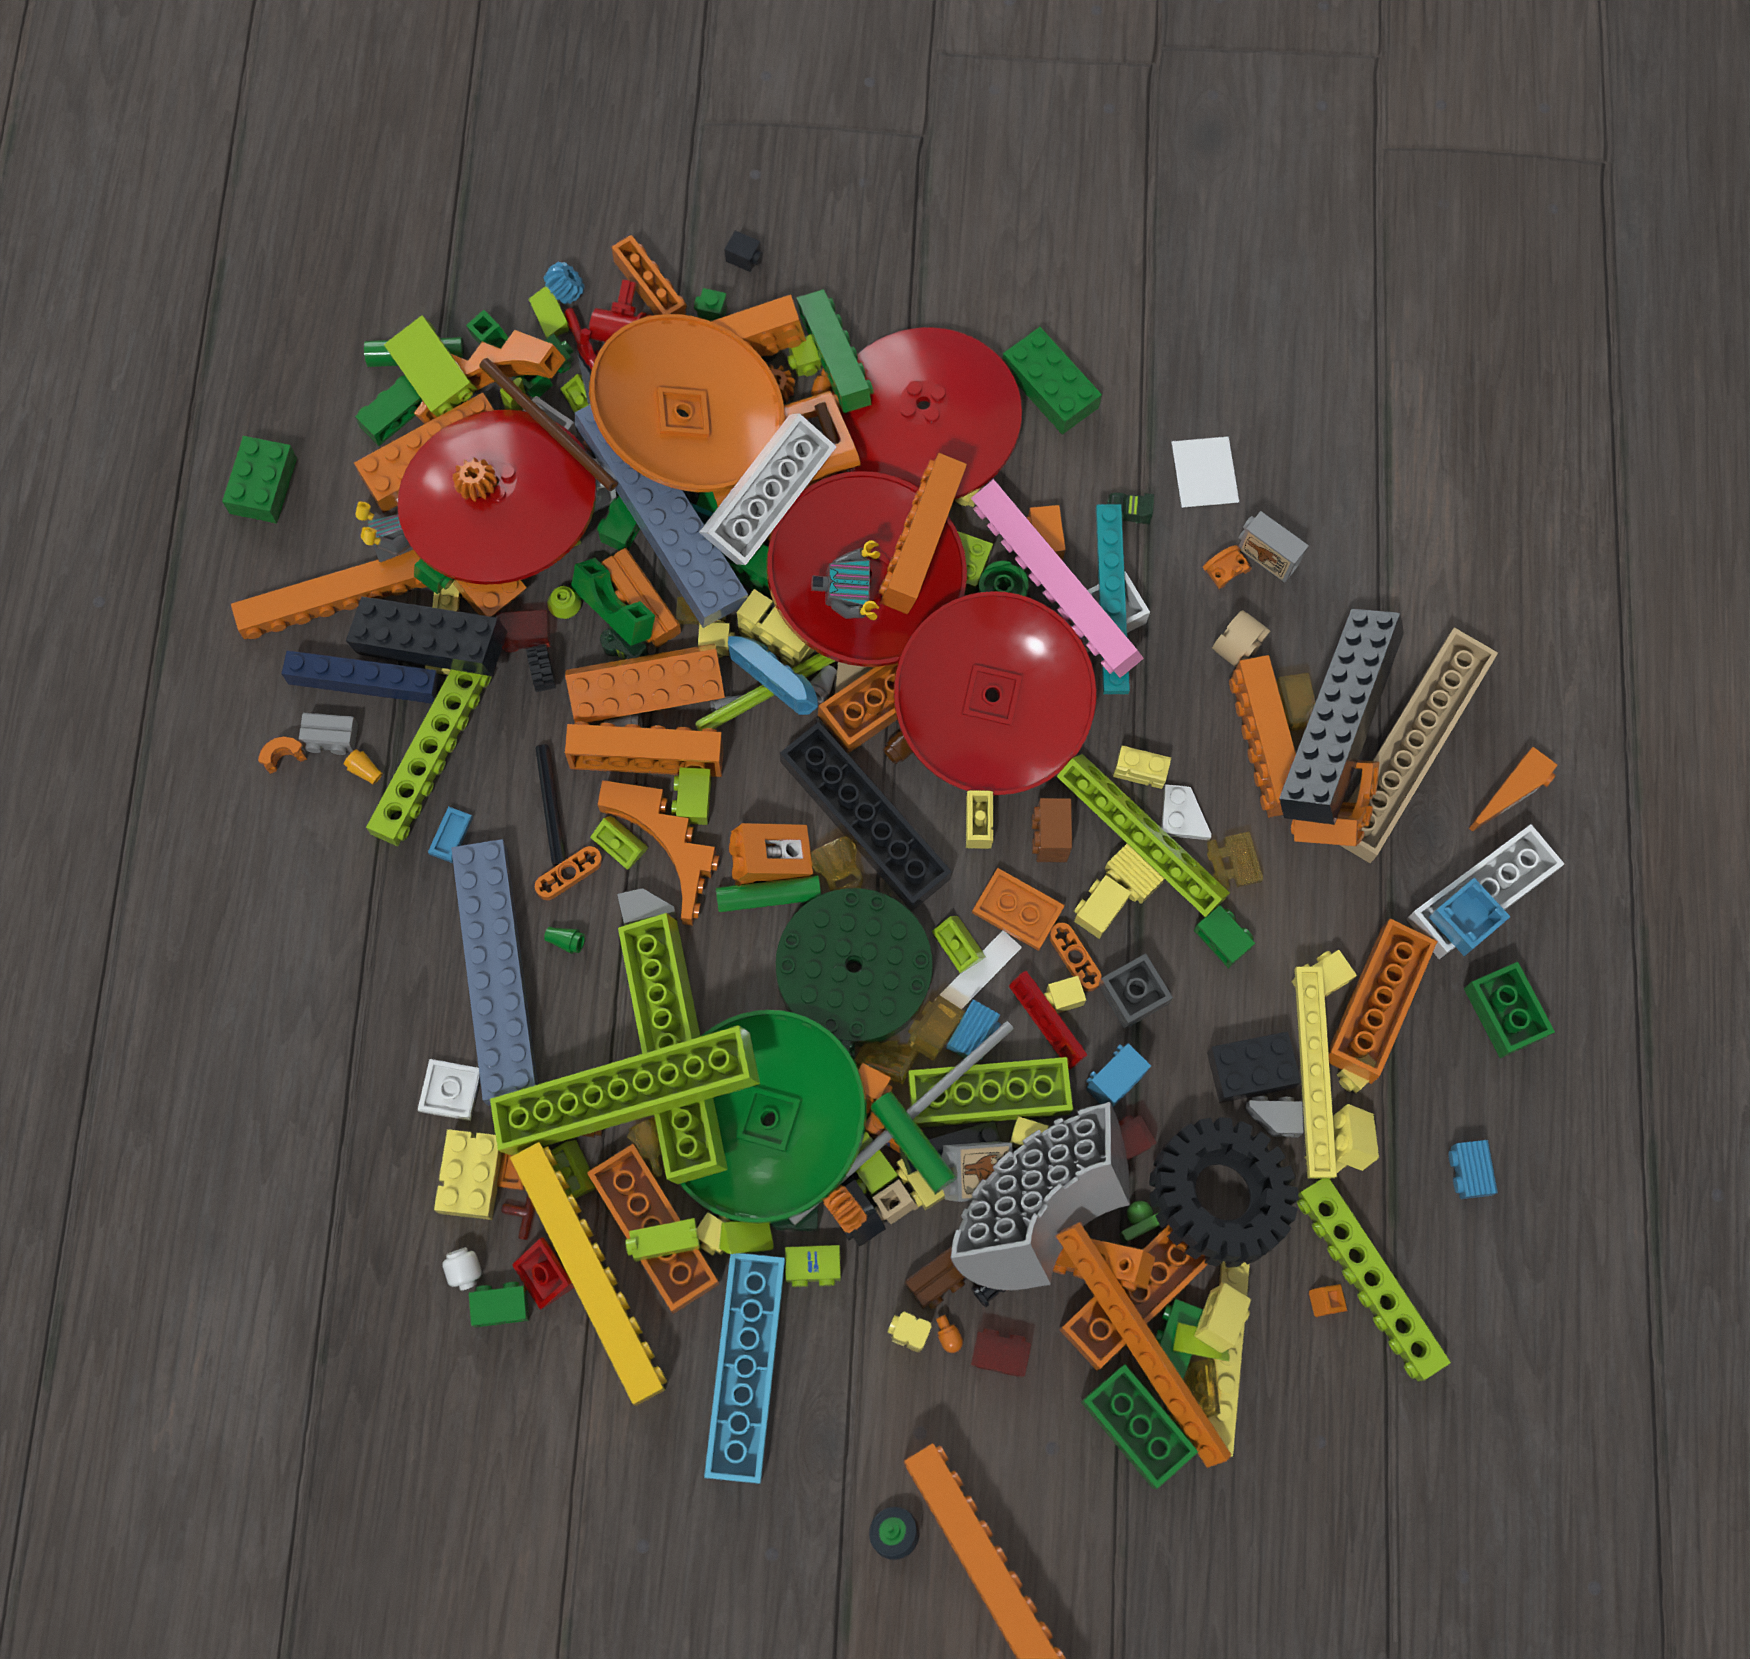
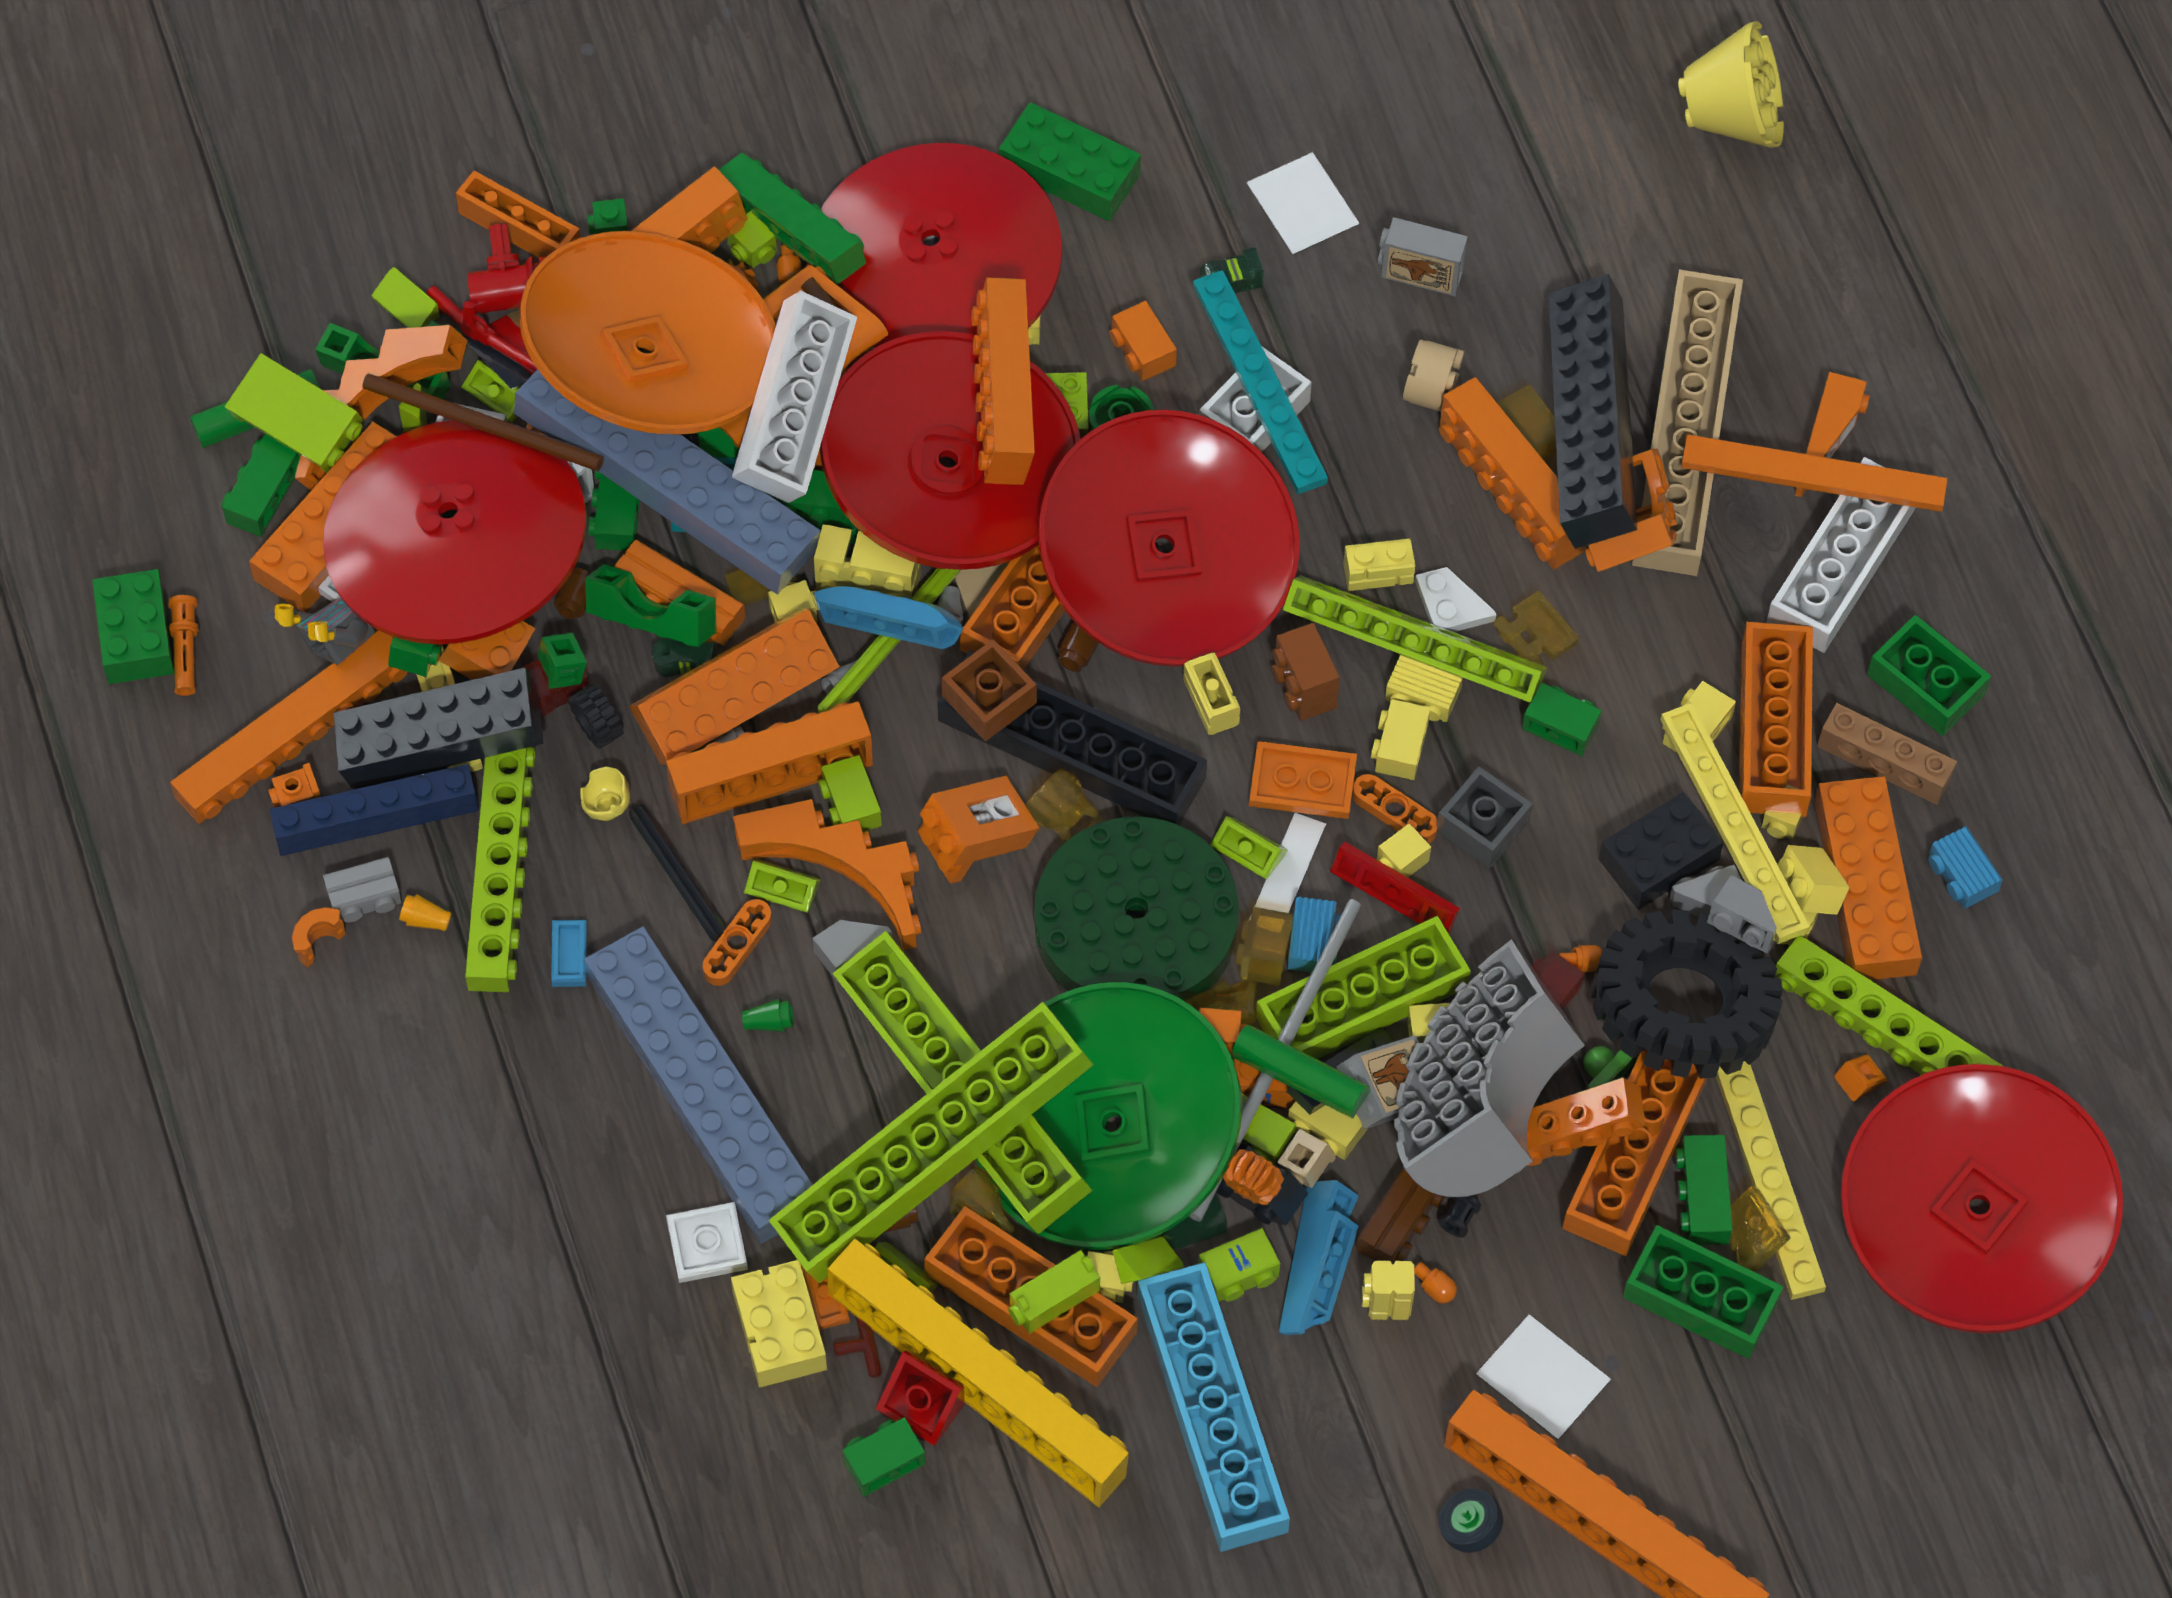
camera: 20 degrees left, 10 degrees down
(293, 495) = (183, 632): none -> orange pin
(323, 642) = (294, 787): none -> orange brick
(462, 1268) = (819, 1432): white head -> none
(474, 479) = (431, 511): orange gear -> none
(524, 728) = (605, 794): none -> light yellow hair
(531, 619) = (562, 660): none -> green brick
(564, 282) = (412, 258): dark azure gear -> none
(564, 570) = (572, 596): none -> reddish brown brick
(564, 602) = (588, 631): lime cone -> none
(743, 251) = (618, 144): black brick -> none
(768, 893) = (993, 872): green brick -> none
(815, 760) = (989, 690): none -> dark orange brick
(849, 583) = (941, 471): torso -> none
(873, 1280) = (1319, 1256): none -> dark azure wedge
(997, 1438) = (1543, 1376): none -> white sticker
(1000, 1353) = (1506, 1278): clear red brick -> none
(1060, 583) = (1182, 381): bright pink brick -> none
(1117, 1076) = (1507, 913): dark azure container -> none
(1143, 1345) = (1667, 1190): orange plate -> none
(1163, 1126) = (1584, 957): none -> orange cylinder
(1187, 1343) = (1734, 1170): lime slope -> none
(1223, 1318) = (1747, 1130): light yellow brick -> none
(1226, 566) = (1377, 301): orange piece -> none
(1291, 1147) = (1743, 914): none -> light grey slope
(1403, 1134) = (1864, 847): none -> orange brick
(1428, 1455) = (1995, 1140): none -> red dish
(1452, 1058) = (1887, 754): none -> medium nougat brick
(1469, 916) = (1837, 582): dark azure container -> none
(1489, 823) = (1814, 473): none -> orange tile
(1554, 505) = (1736, 89): none -> light yellow cone

